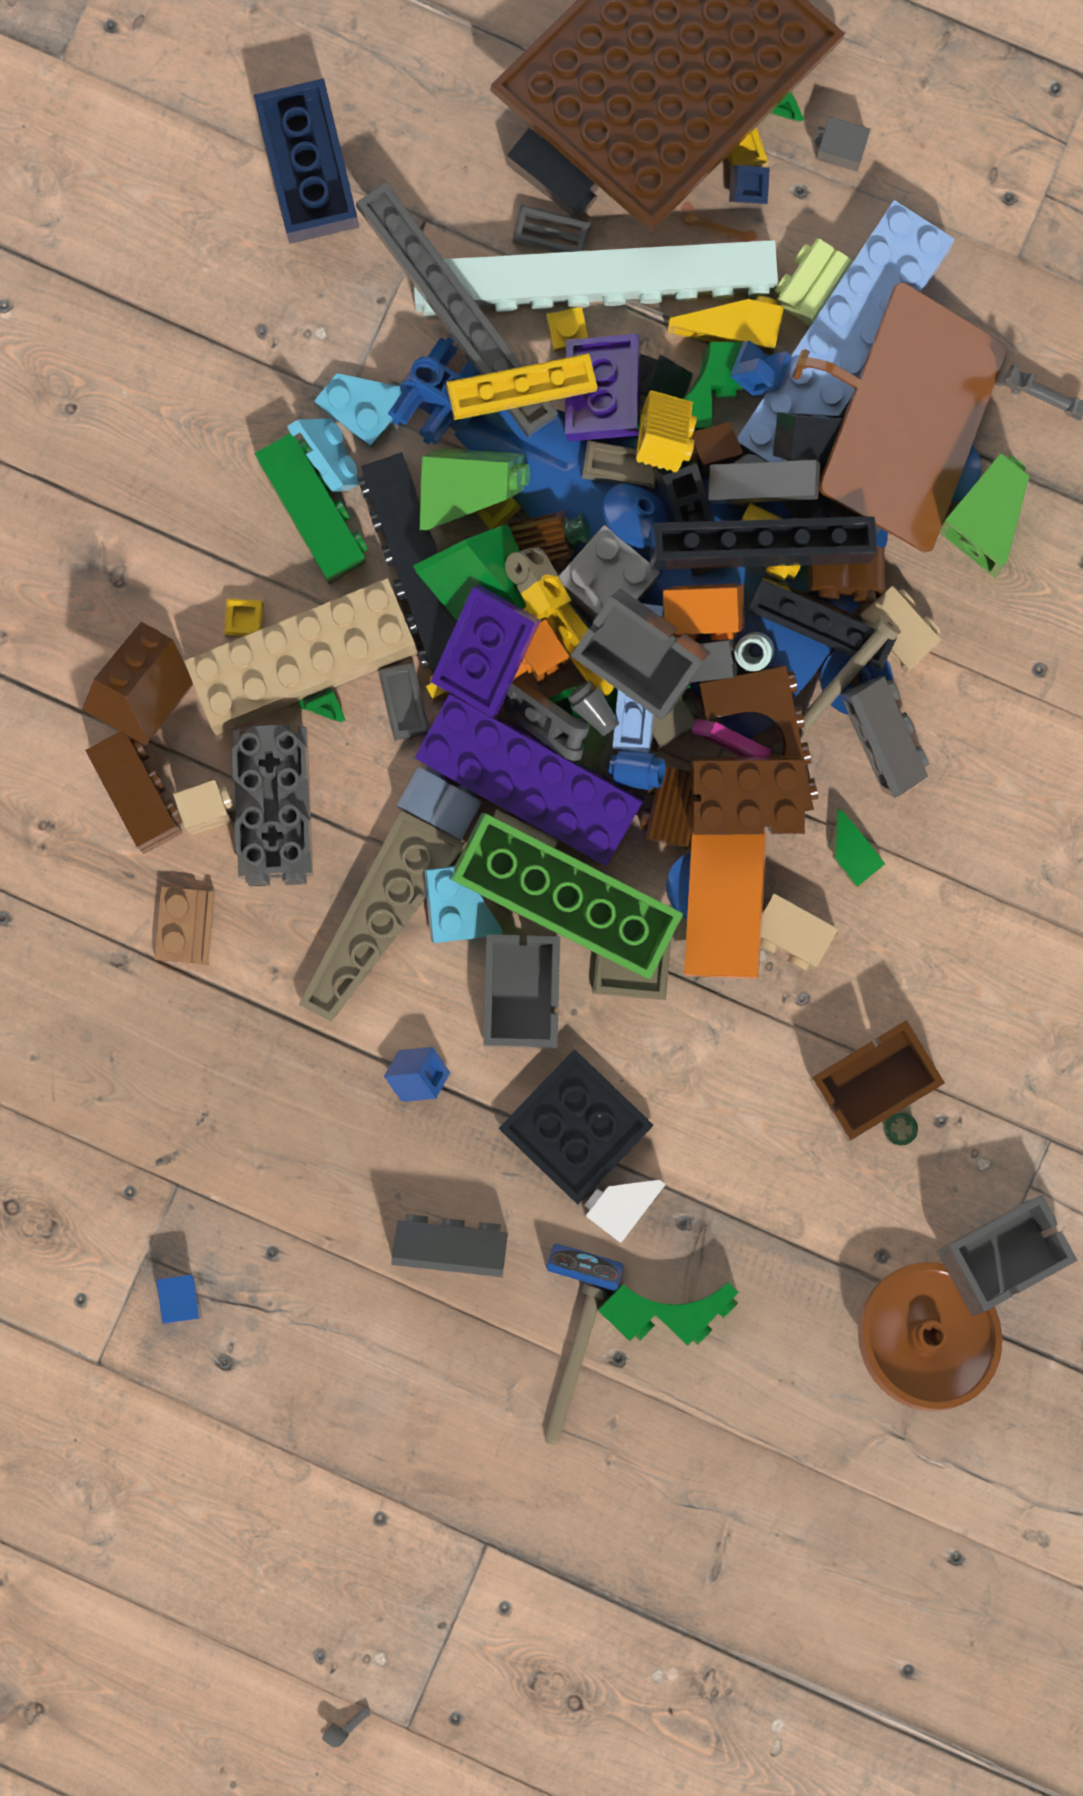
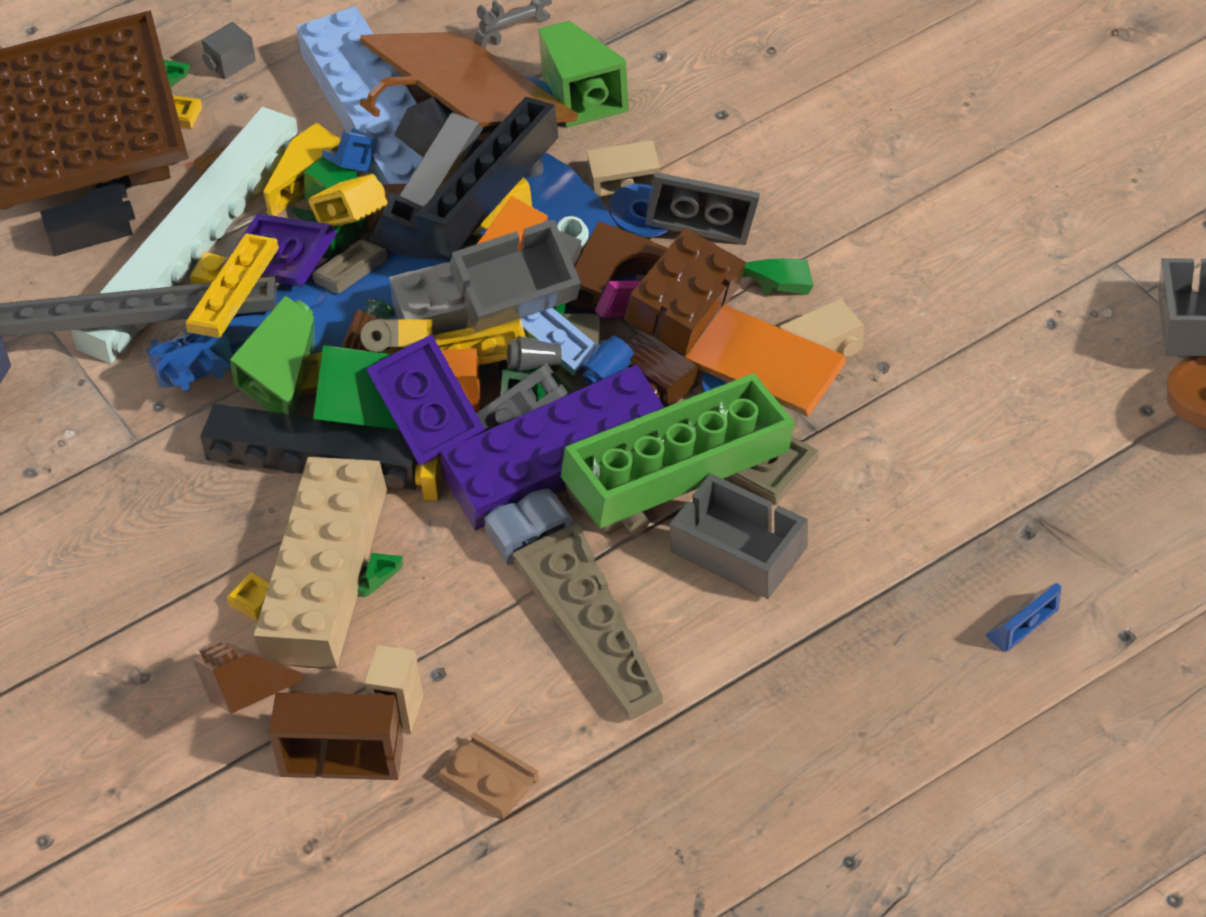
camera: 55 degrees left, 35 degrees down
(272, 805) = (454, 634): dark grey brick -> none
(311, 507) = (202, 497): green brick -> none
(327, 452) = (163, 458): medium azure wing -> none
(359, 405) = (152, 429): medium azure wing -> none
(404, 701) = (420, 516): dark grey tile -> none
(417, 1074) = (758, 656): blue panel -> none
(450, 1246) = (941, 700): dark grey slope -> none
(456, 910) = (626, 553): medium azure wing -> none
(555, 218) = (125, 242): dark grey tile -> none
(574, 1361) = (1054, 620): dark tan bar -> none
(576, 1126) = (888, 562): black plate -> none
(621, 1206) = (986, 560): white slope -> none
(632, 512) = (398, 261): blue dish -> none
(689, 1321) = (1092, 593): green arch -> none
(749, 184) = (207, 114): dark blue plate -> none
(813, 281) = (313, 103): yellowish green brick -> none
(816, 619) = (591, 188): black plate -> none
(860, 581) = (557, 168): reddish brown brick -> none
(877, 1081) = (990, 332): reddish brown piece -> none
(885, 629) = (618, 147): dark tan bar -> none
(893, 1137) = (1046, 353): clear green bush -> none

